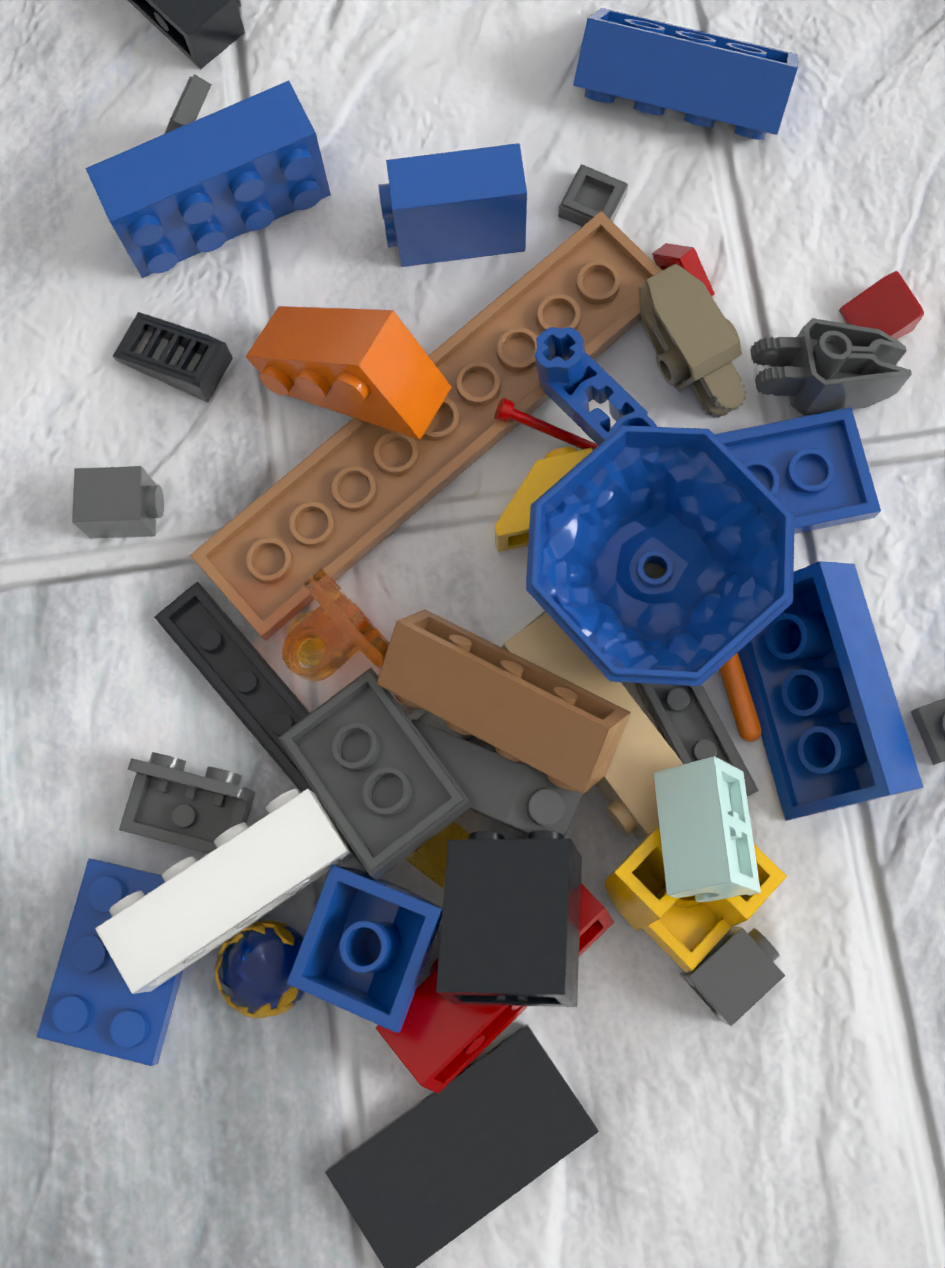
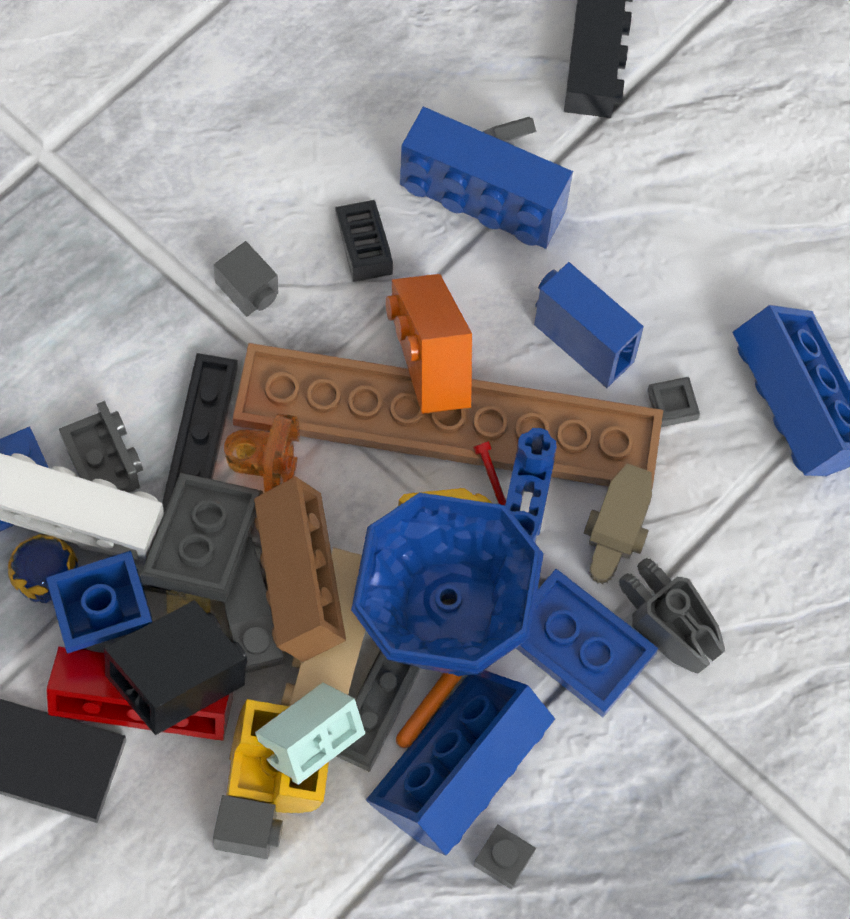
camera: 40 degrees right, 10 degrees down
(684, 257) = (667, 489): red tile -> none
(885, 306) = (743, 626): red slope -> none

